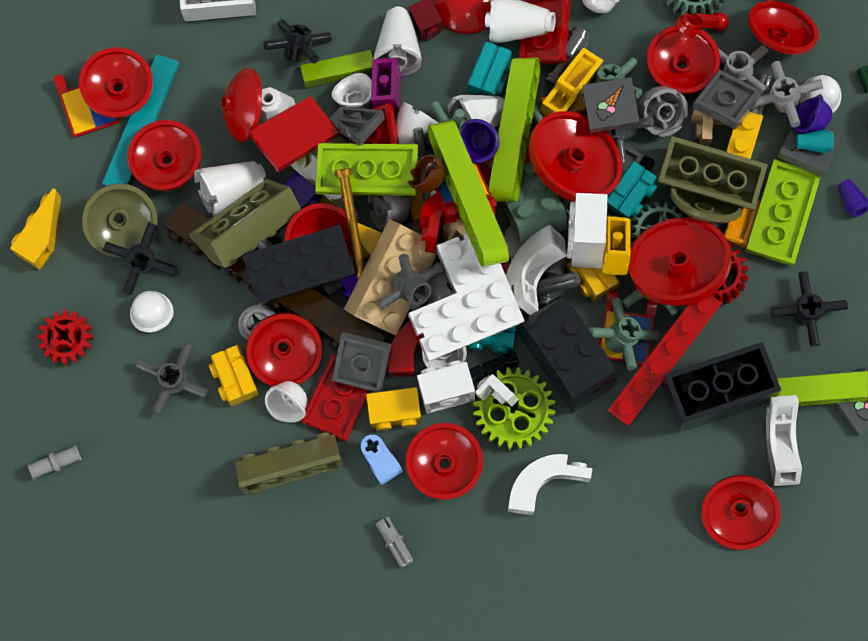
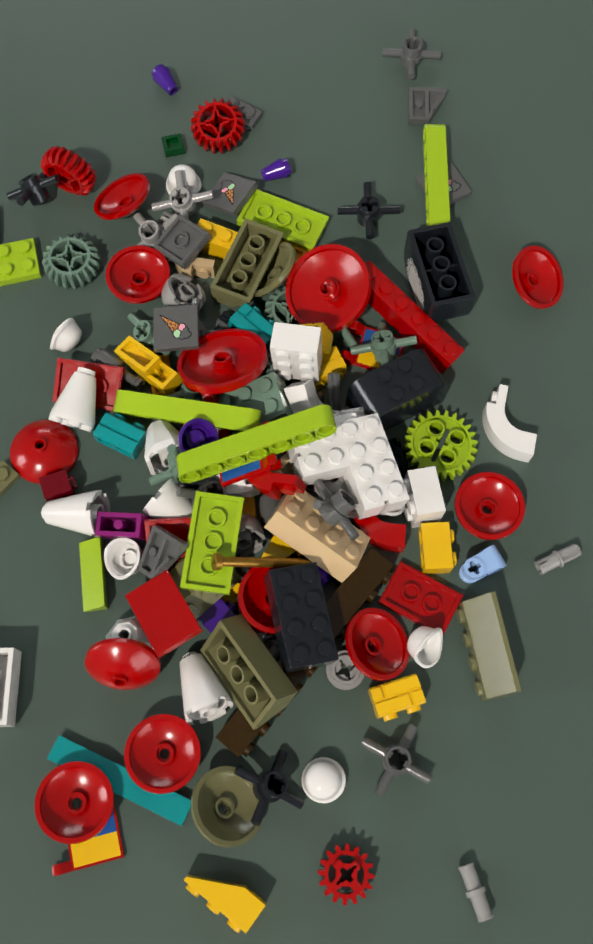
camera: 90 degrees left, 5 degrees down
(297, 42) = (61, 608): black bar -> none
(361, 362) = (395, 570): dark grey tile -> none
(427, 174) = (230, 480): reddish brown hair -> none
(500, 392) = (433, 448): white bracket -> none
(690, 24) = (108, 258): red piece -> none
(781, 440) = (481, 244): white arch -> none
(813, 115) = (204, 180): dark purple helmet -> none
(816, 141) = (228, 181): teal cone -> none

